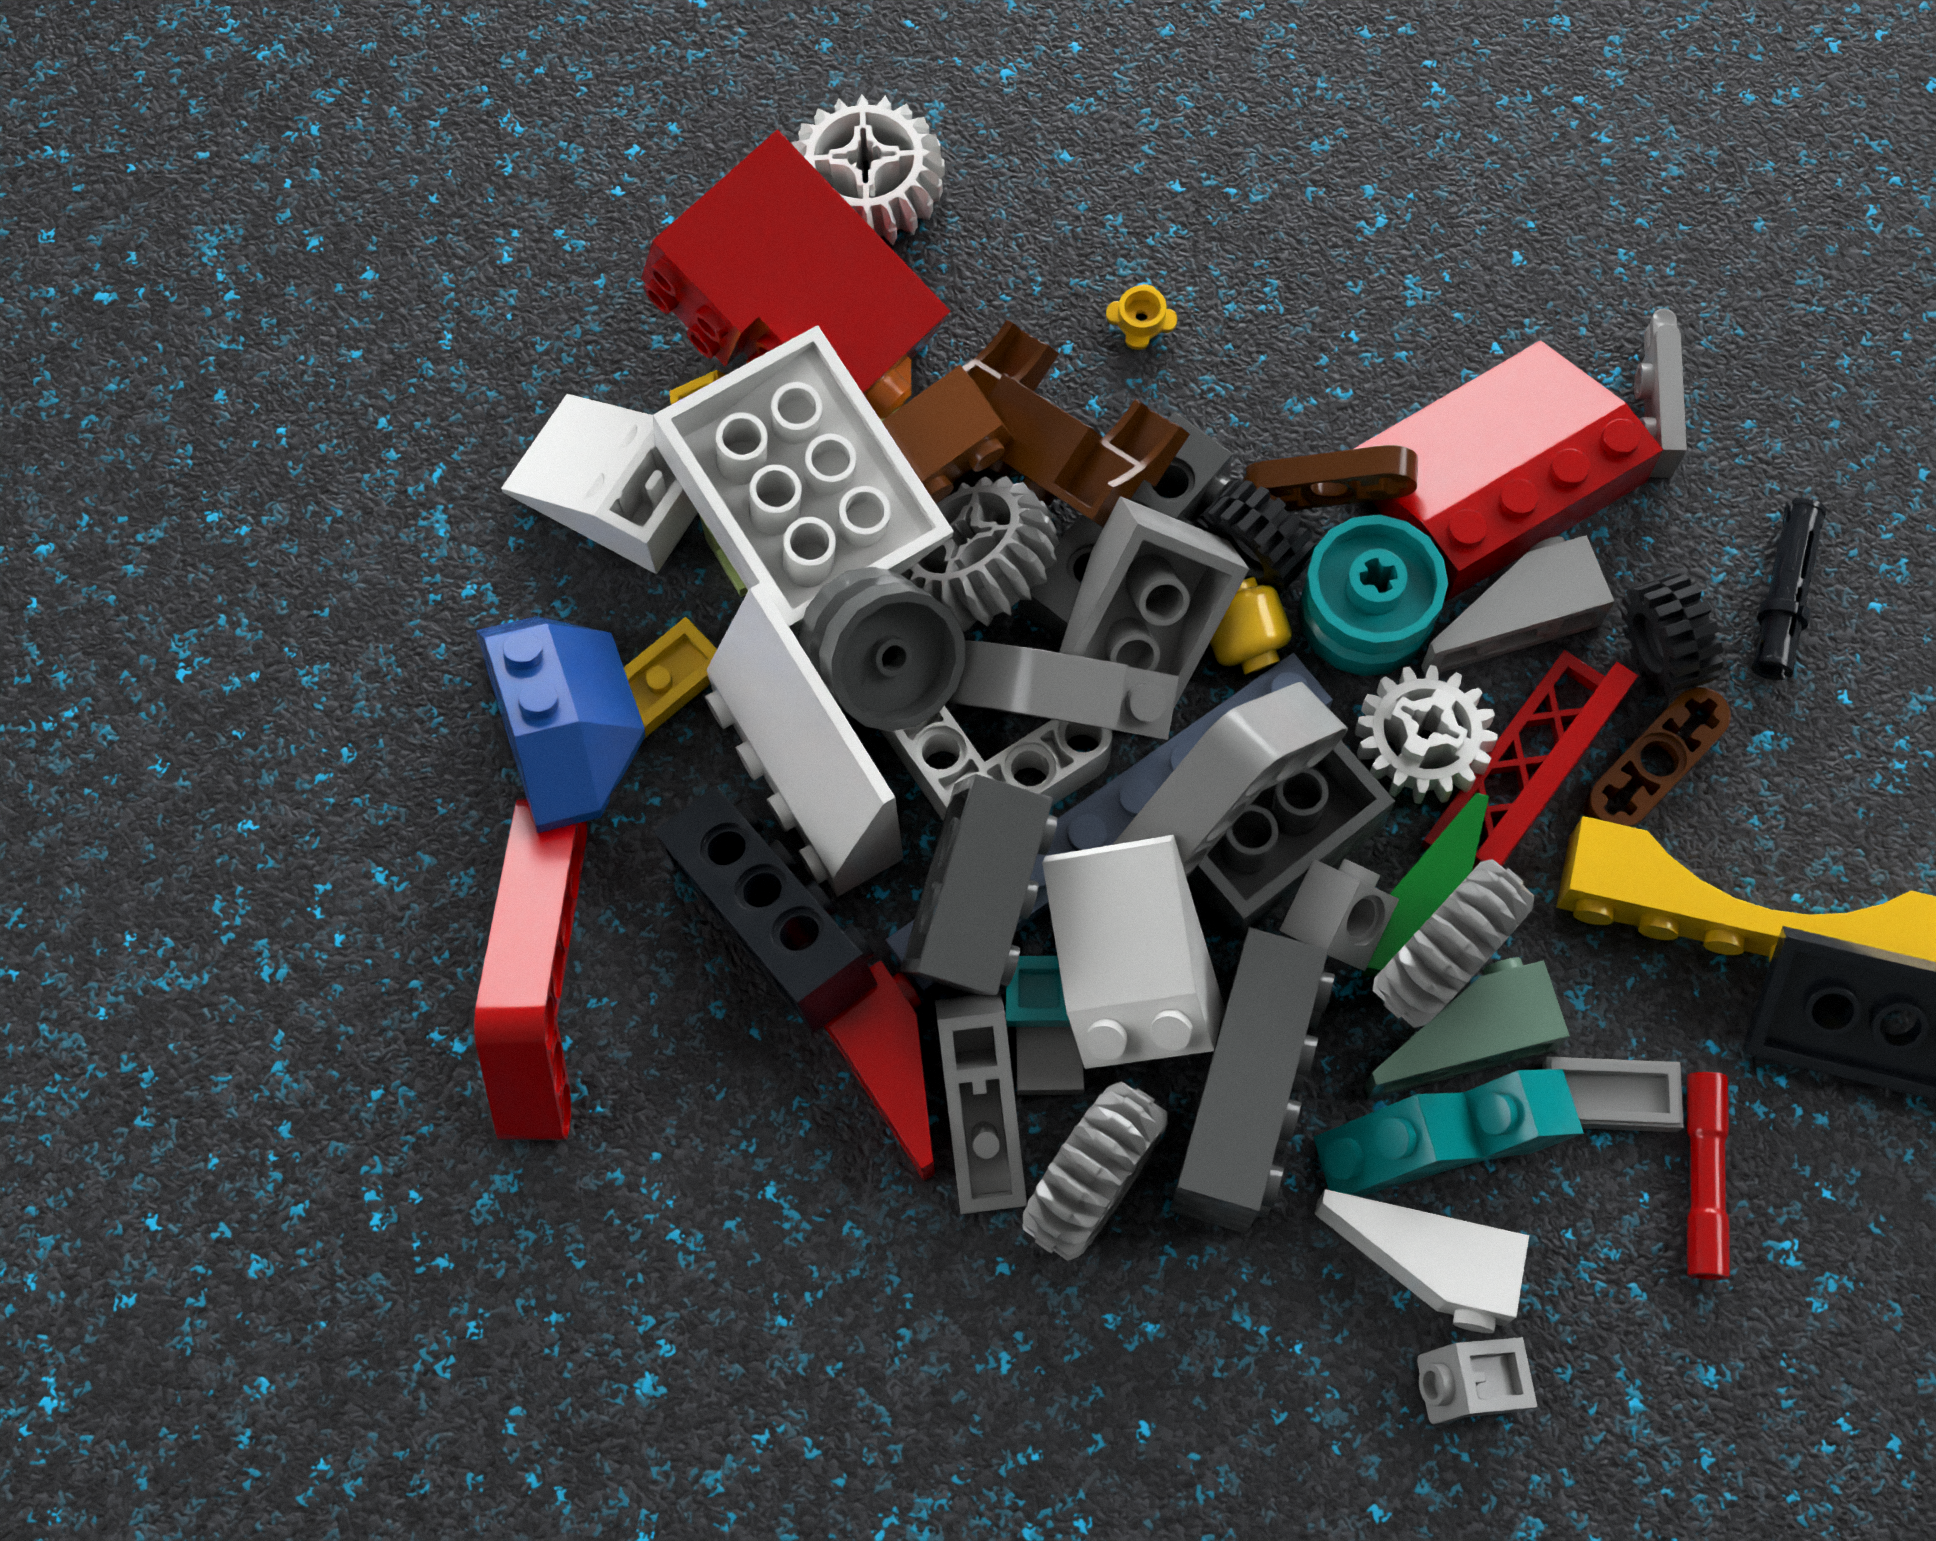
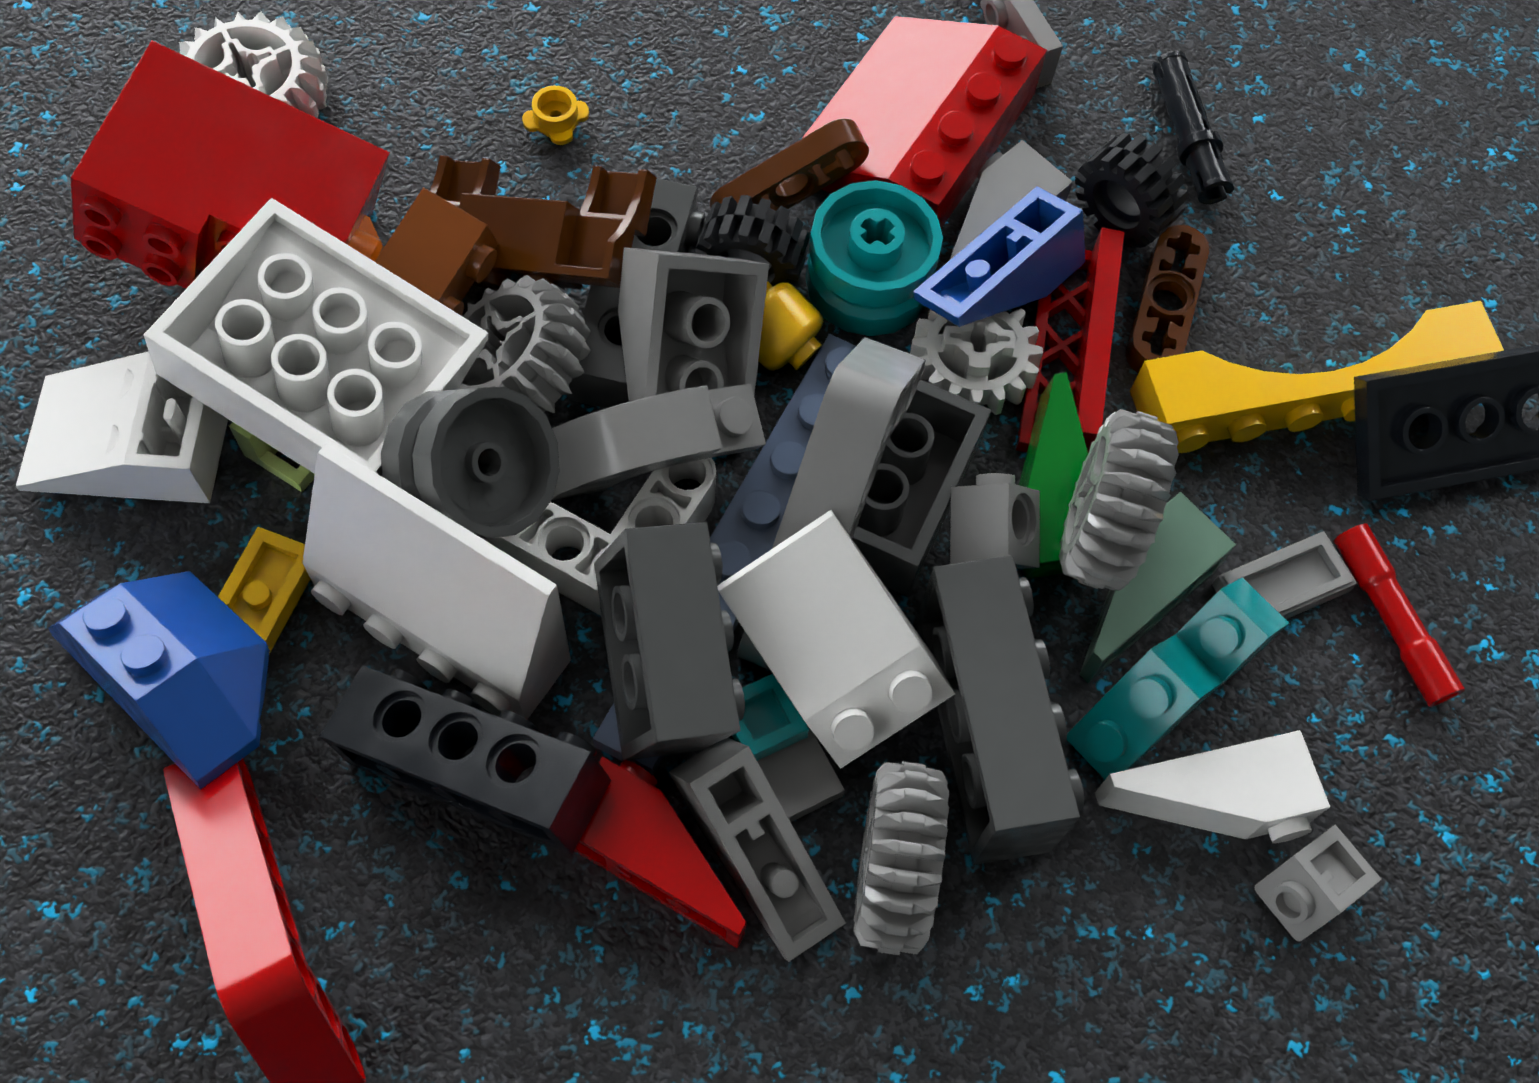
camera: 35 degrees left, 5 degrees down
(1495, 661) = (1010, 261): none -> blue slope

